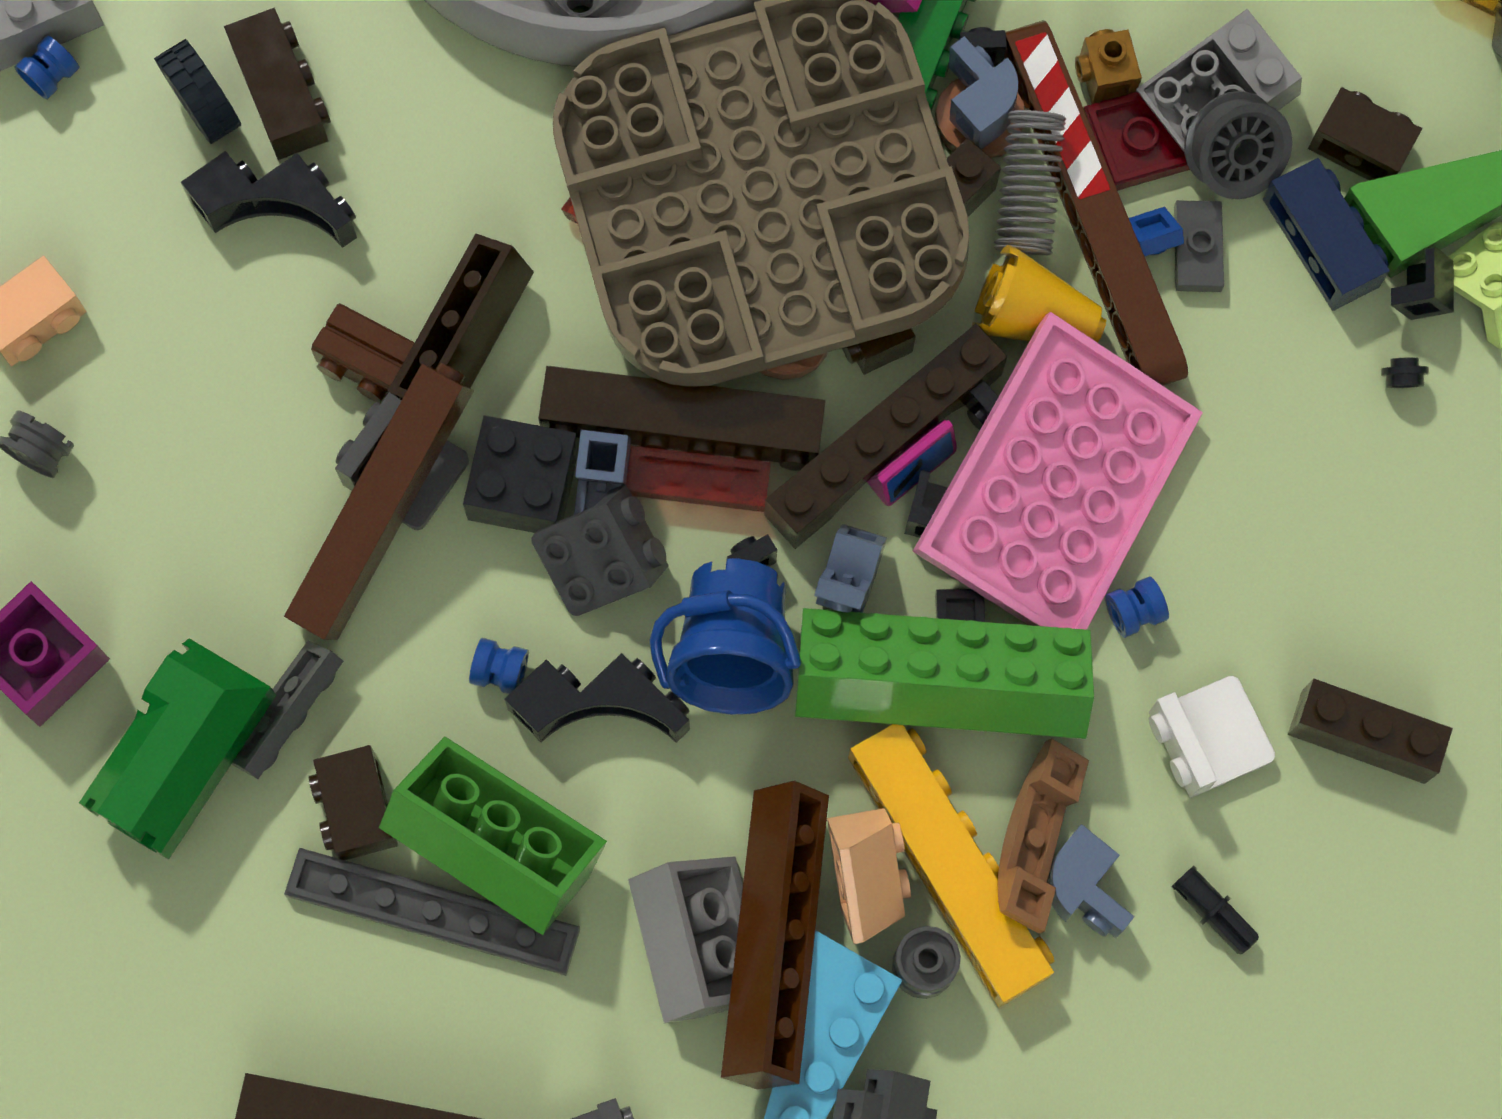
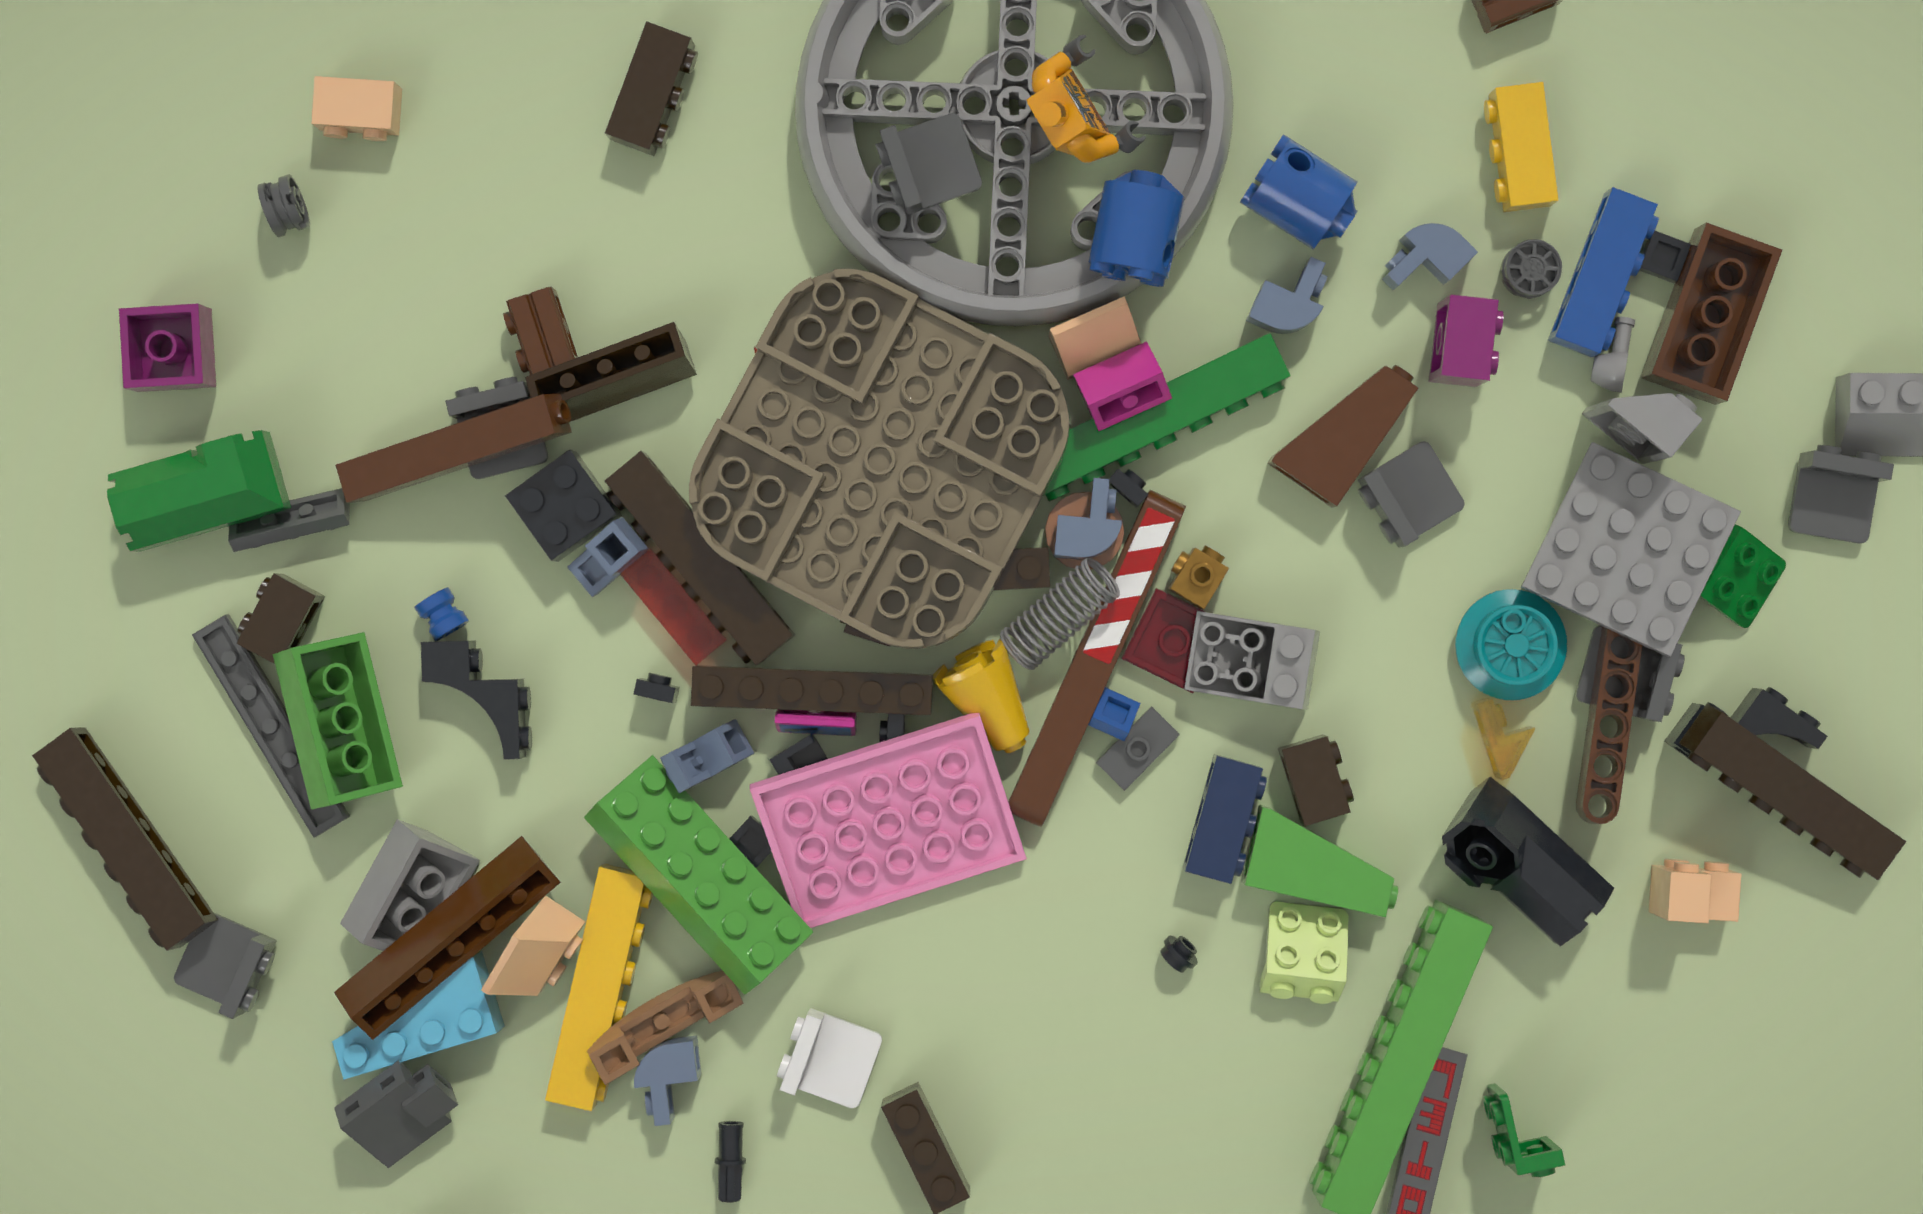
camera: 45 degrees right, 15 degrees up
(198, 91) = (587, 54): black wheel -> none
(231, 193) = (554, 138): black arch -> none
(601, 553) = (567, 607): dark grey bracket -> none
(733, 641) = (586, 734): blue piece -> none
(926, 962) = (525, 1032): dark grey wheel -> none
(1137, 607) = (854, 938): blue wheel -> none
(1219, 129) = (1218, 713): dark grey wheel -> none
(1428, 287) = (1250, 915): black panel -> none

